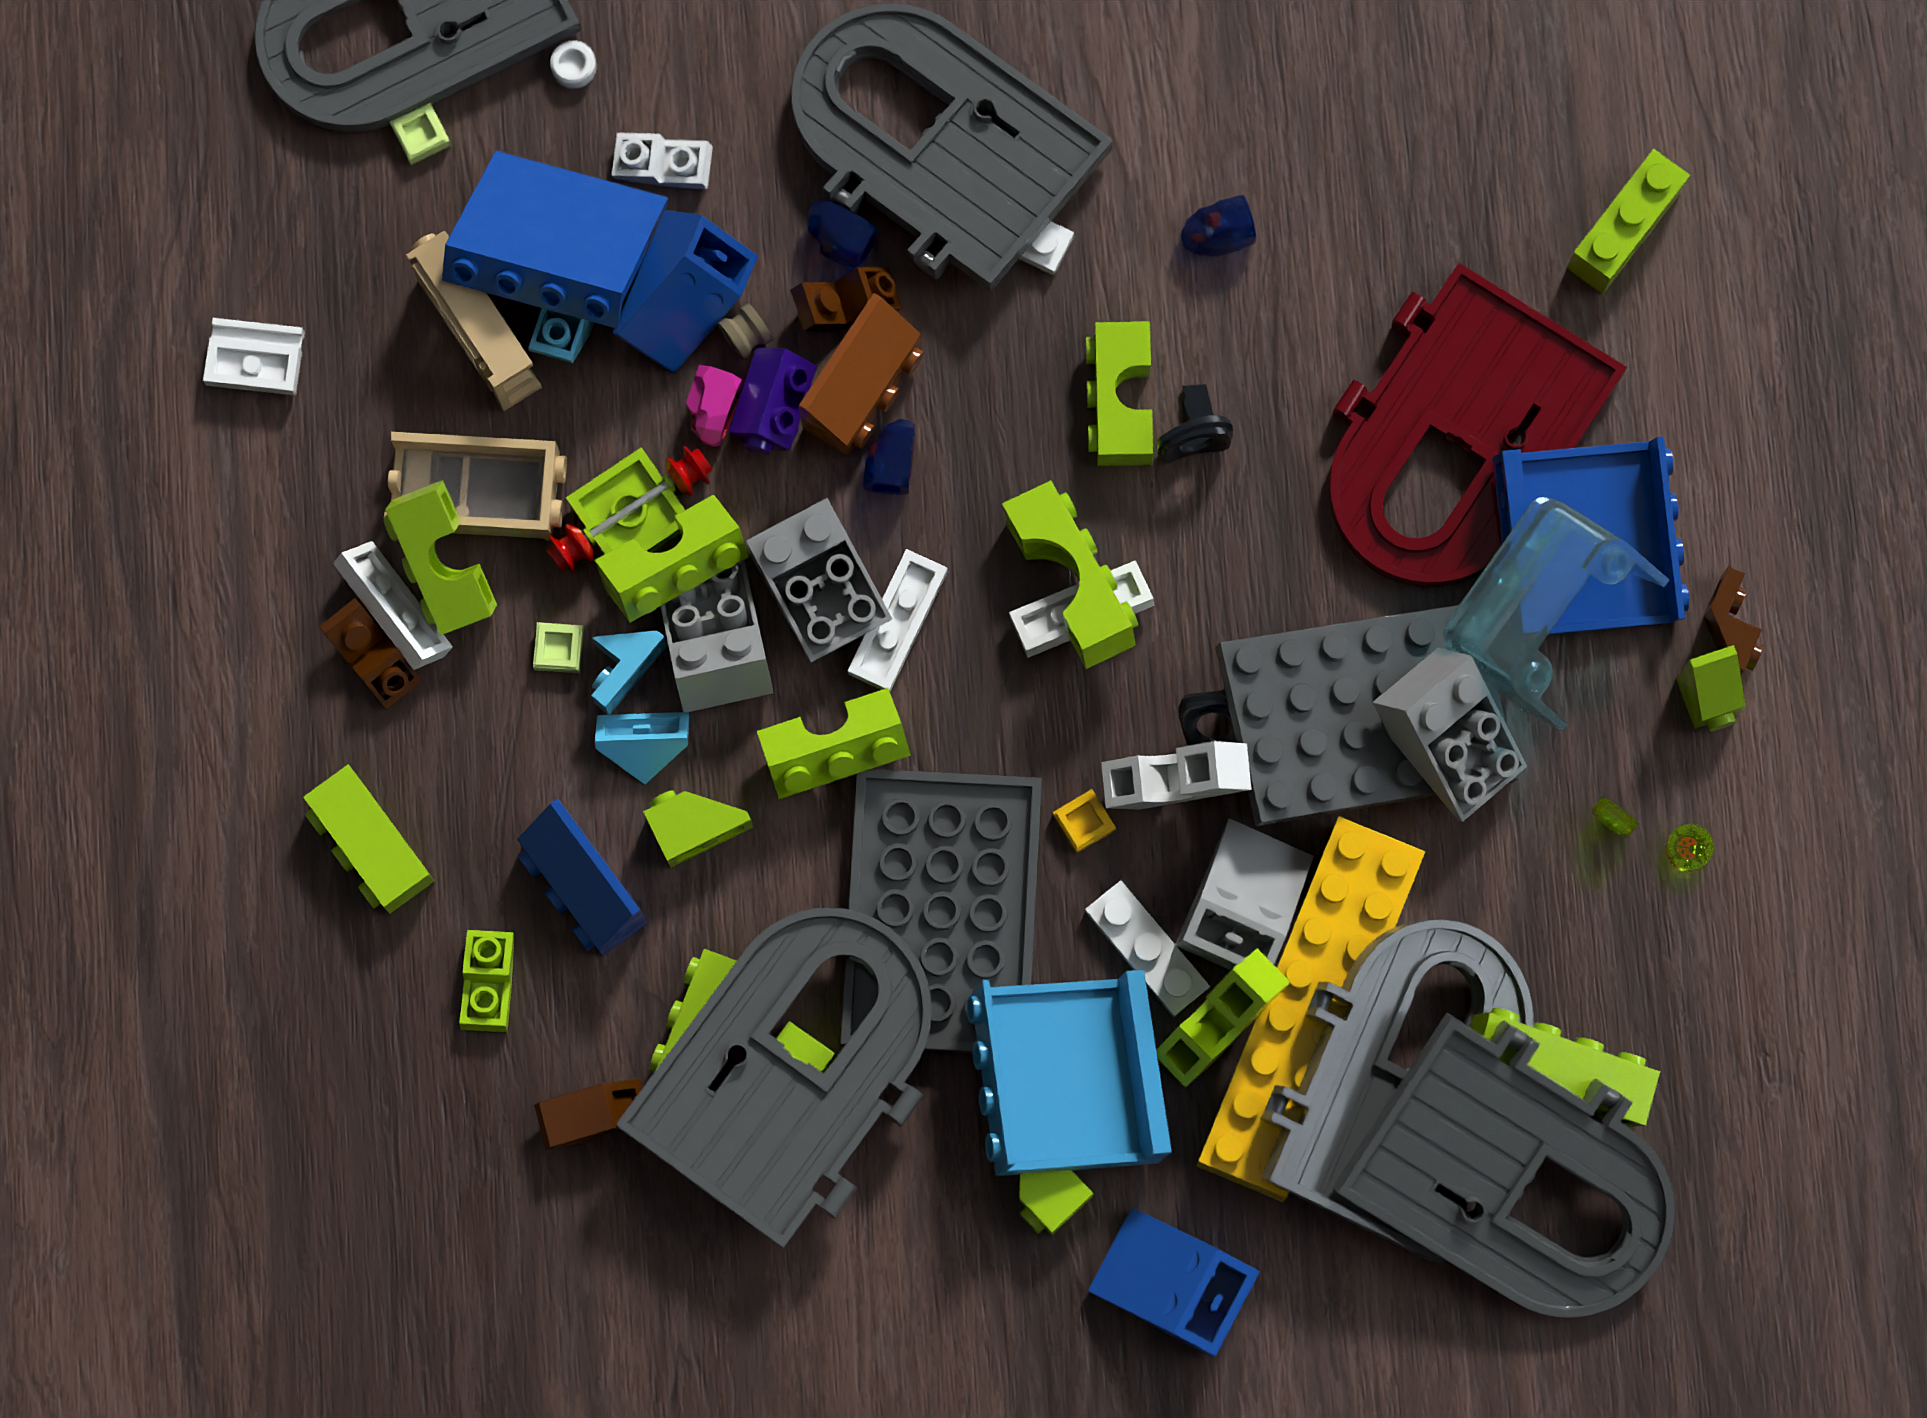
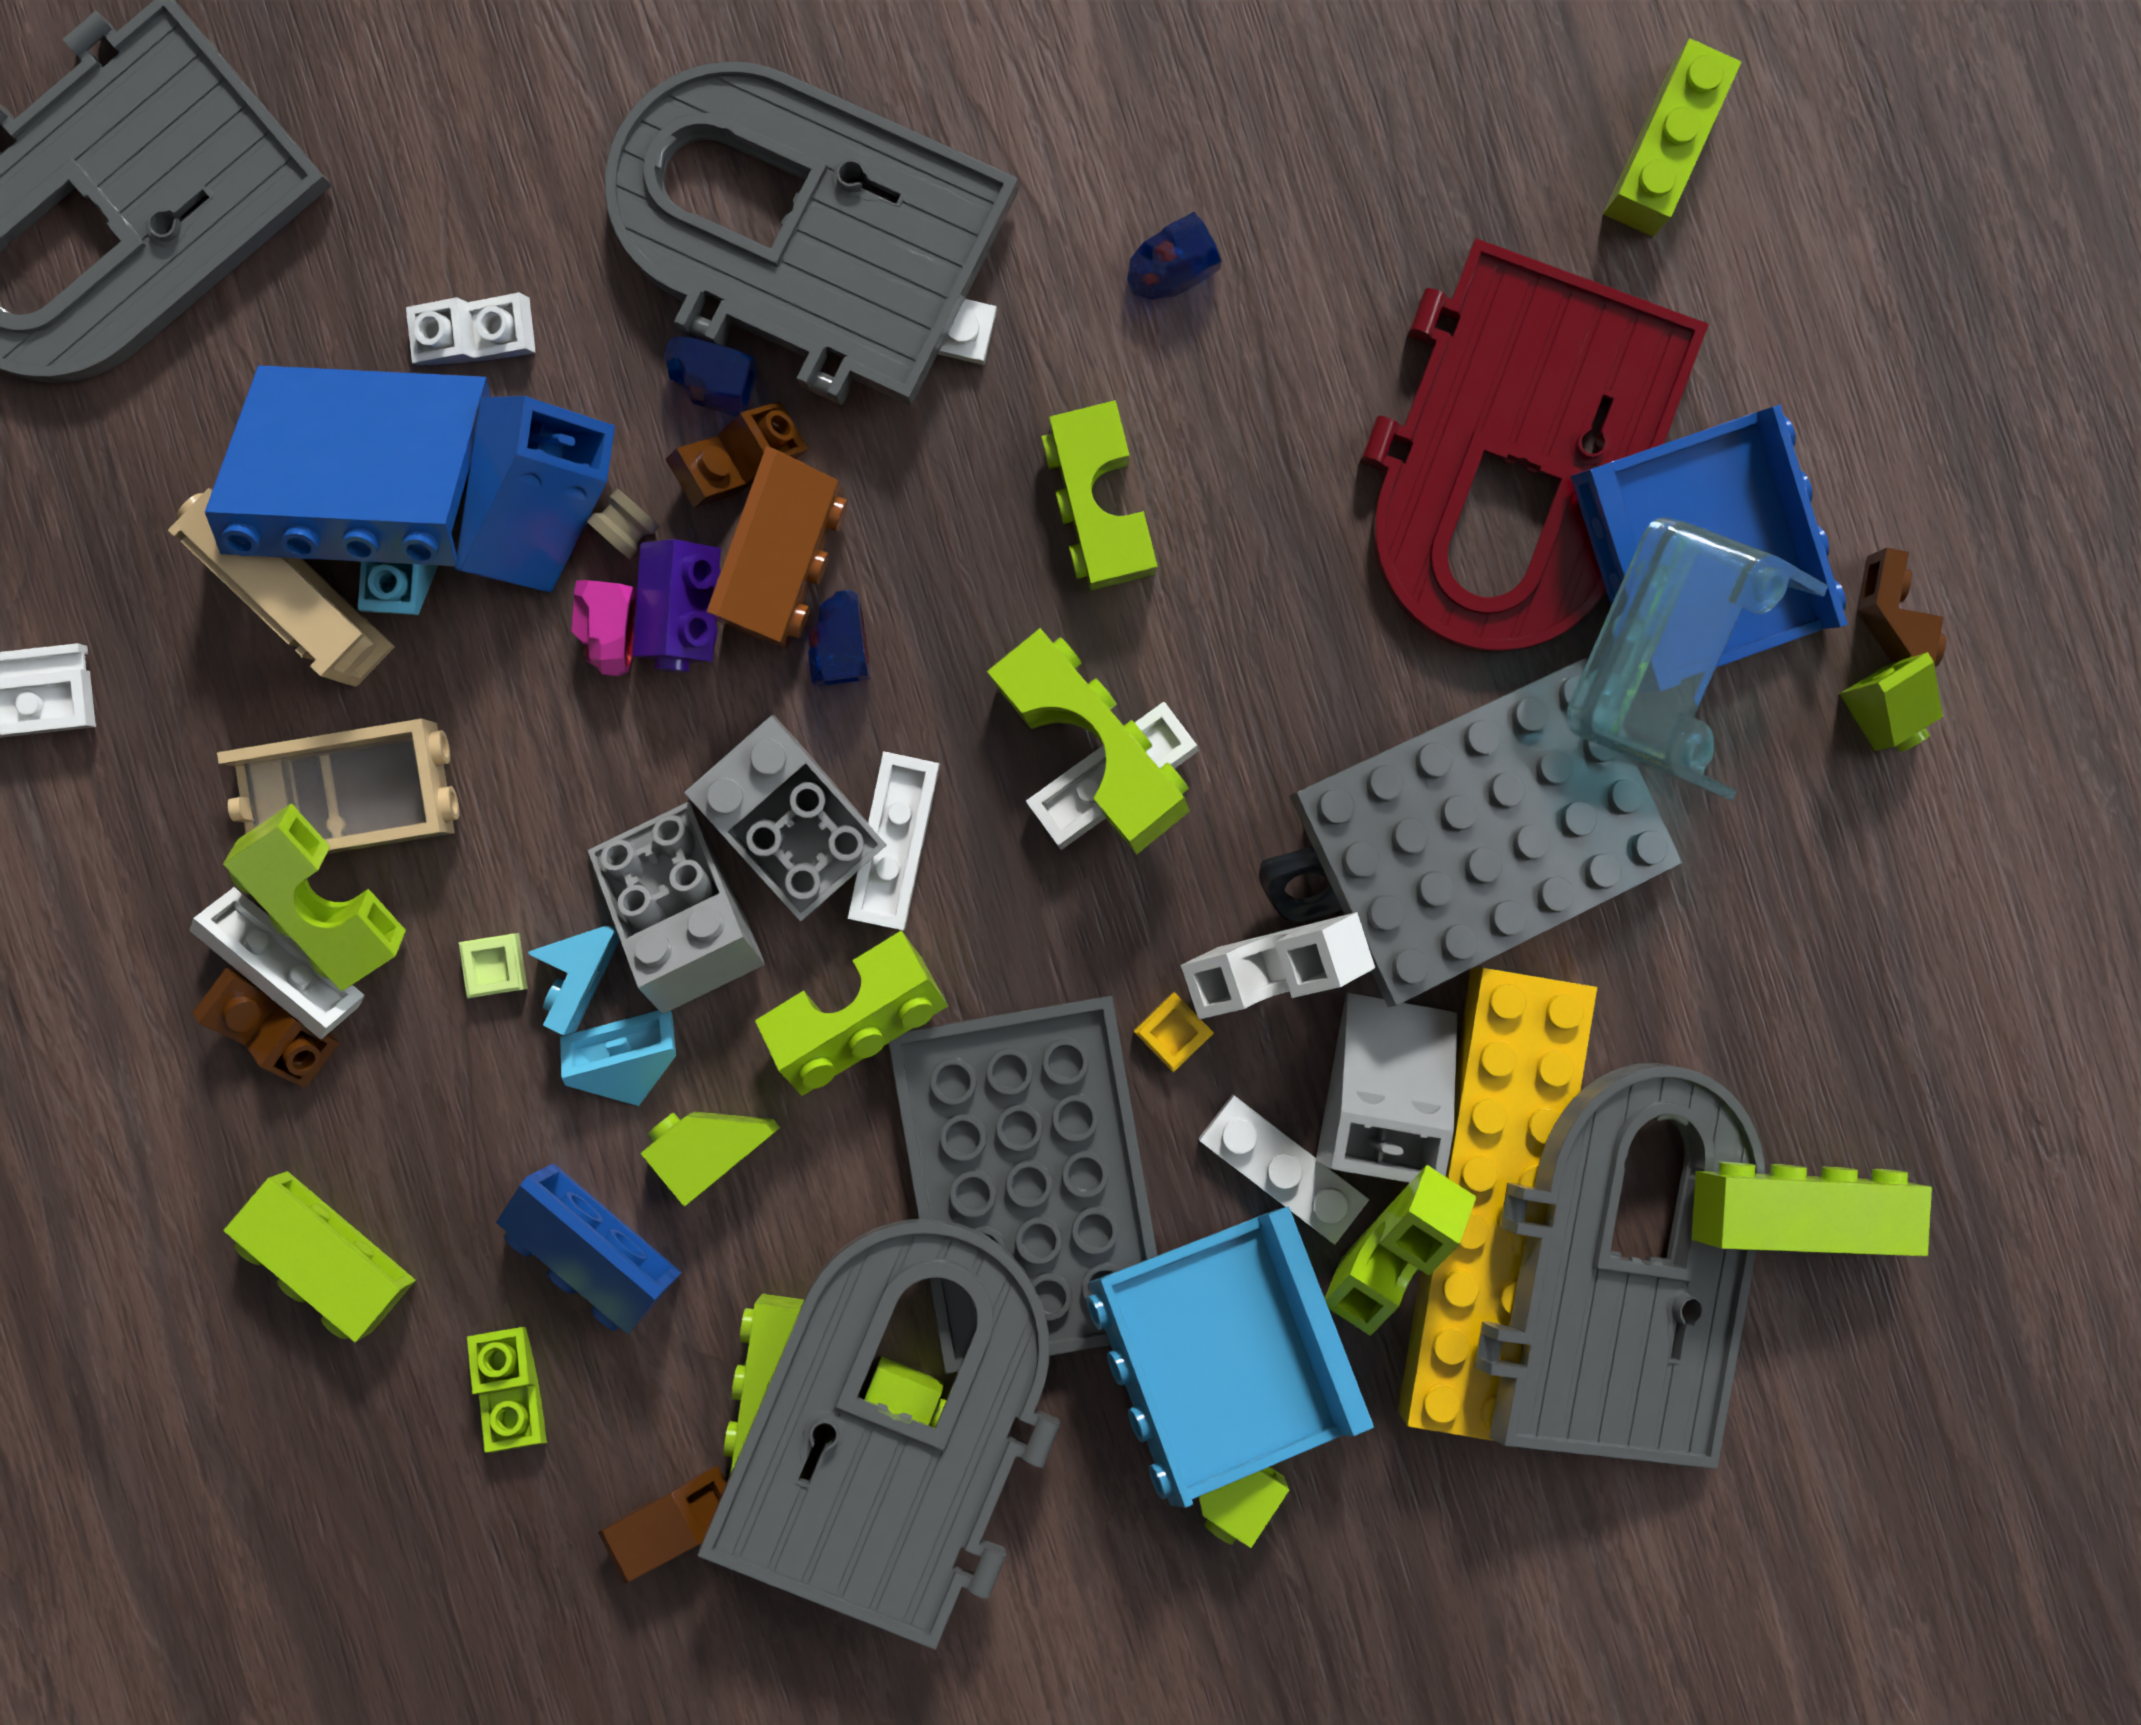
camera: 20 degrees left, 10 degrees up
(420, 133) = (165, 362): yellowish green tile -> none
(573, 64) = (332, 231): white tile -> none
(628, 504) = (535, 779): lime plate -> none
(646, 580) = (576, 868): lime arch -> none
(1173, 1282) = (1409, 1568): blue slope -> none
(1201, 433) = (1212, 521): black piece -> none
(1451, 731) = (1597, 831): light grey slope -> none
(1484, 1135) = (1747, 1326): dark grey door -> none
(1614, 817) = (1807, 884): clear neon green tile -> none
(1689, 847) = (1900, 897): clear neon green tile -> none

